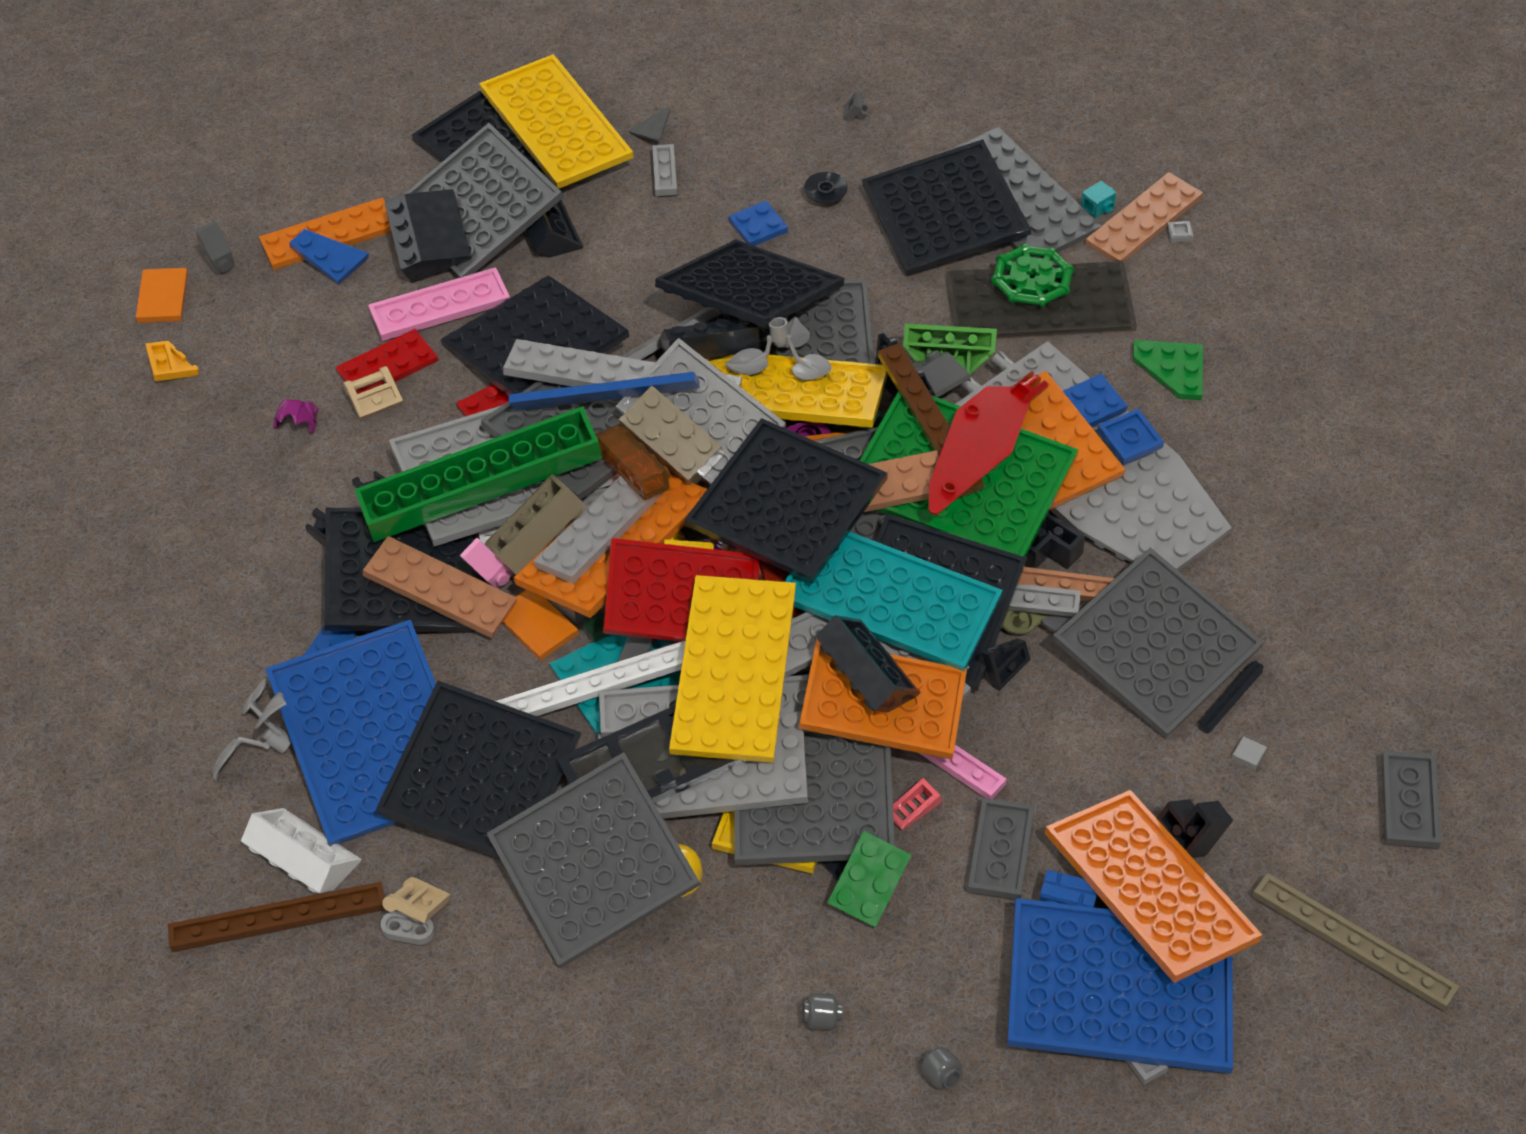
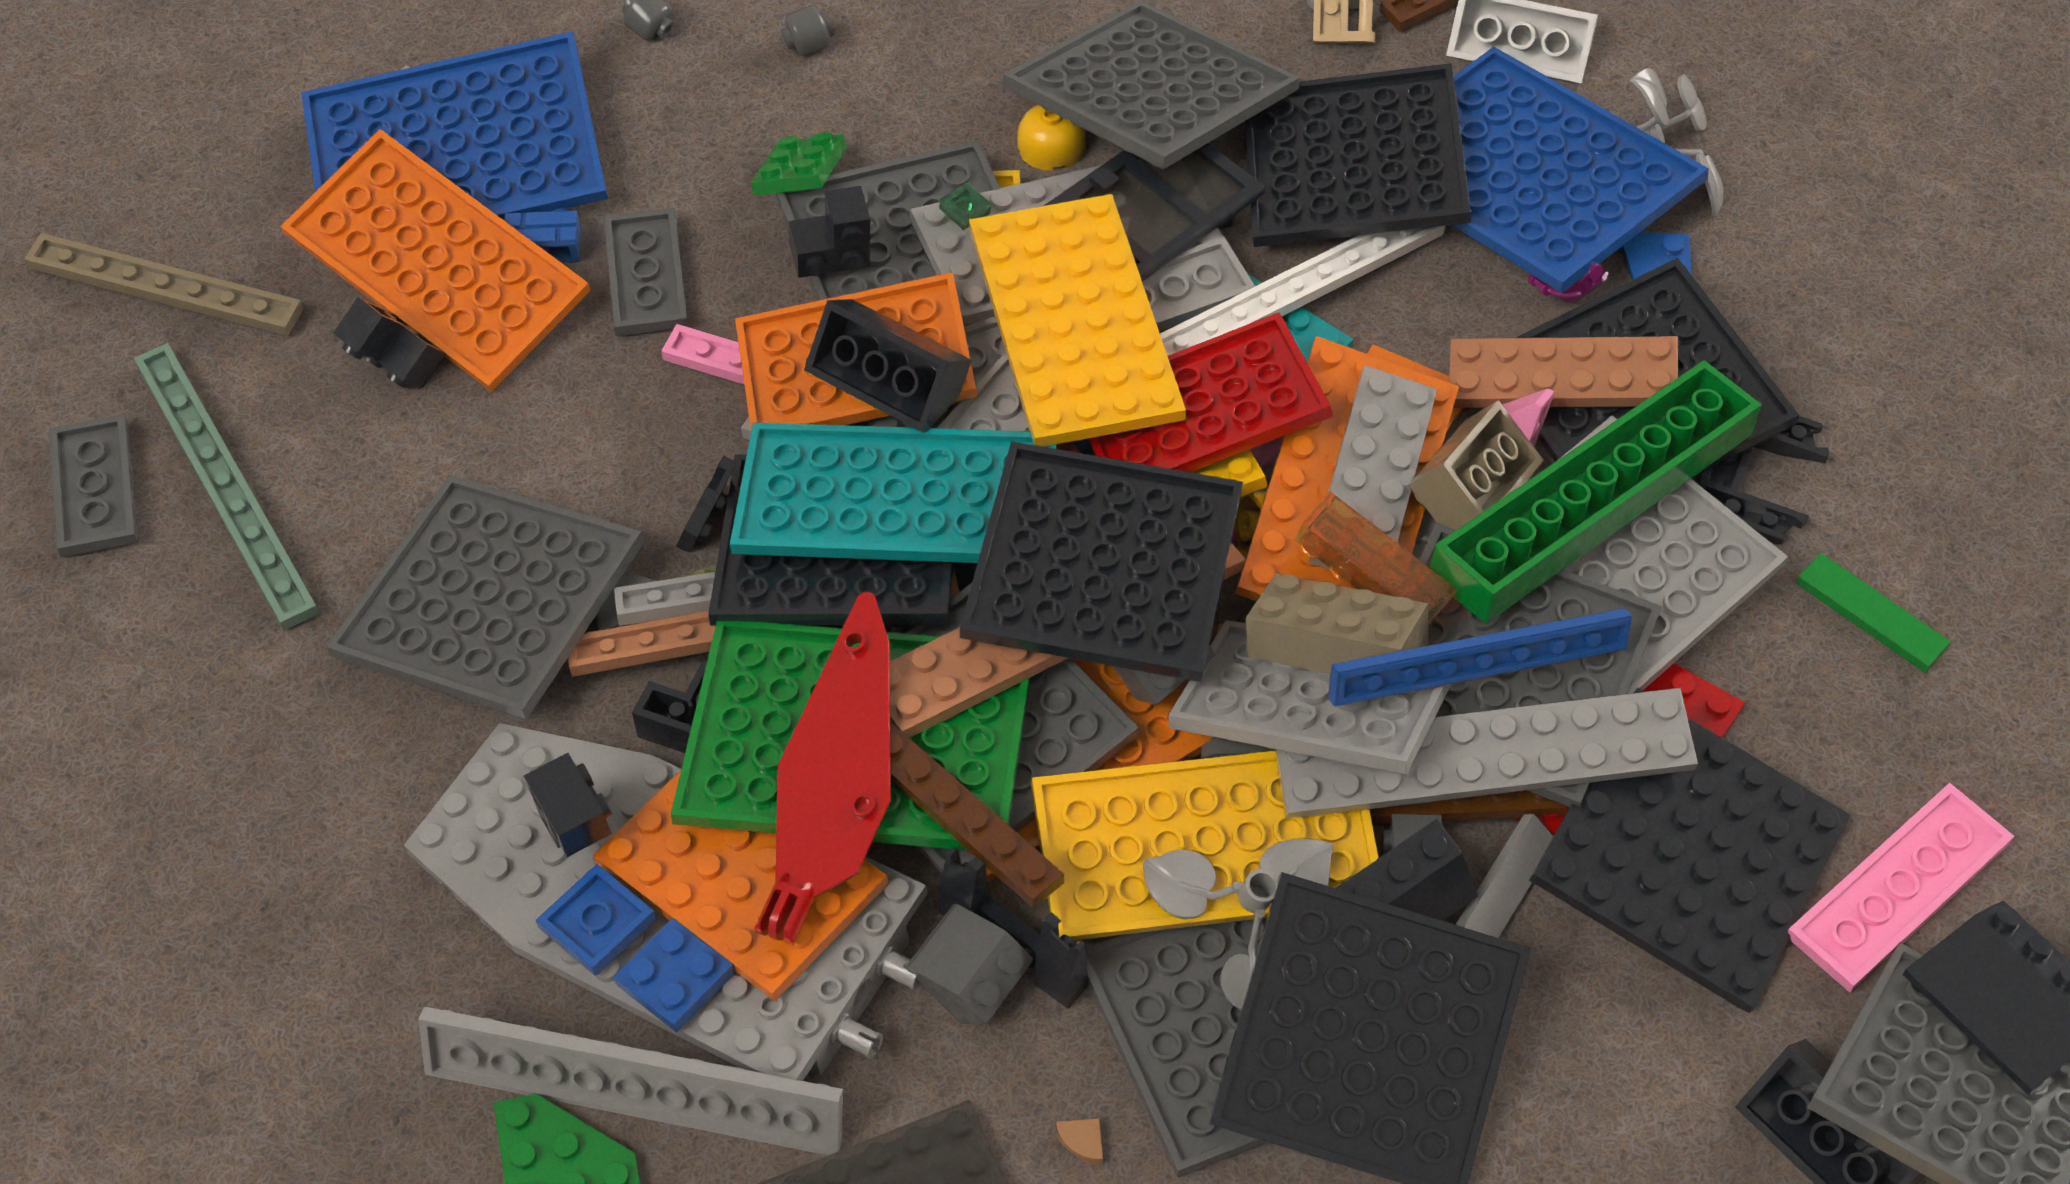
camera: 160 degrees right, 5 degrees up
(300, 411) = (1969, 587): magenta helmet -> none
(353, 431) = (1873, 612): none -> green tile
(375, 399) = (1875, 661): tan plate -> none
(401, 356) = (1905, 748): red plate -> none
(771, 773) = (964, 204): none -> clear green plate
(870, 781) = (834, 240): none -> black brick
(905, 310) = (1082, 1139): none -> medium nougat tile
(933, 800) = (758, 300): coral slope -> none
(966, 344) = (972, 1058): bright green wedge -> none
(1134, 375) = (632, 1081): none -> light grey plate
(1135, 478) = (569, 804): none -> black brick
(1230, 697) = (367, 565): black axle -> none
(1249, 753) = (330, 493): light grey tile -> none
(1322, 779) = (226, 487): none -> sand green plate

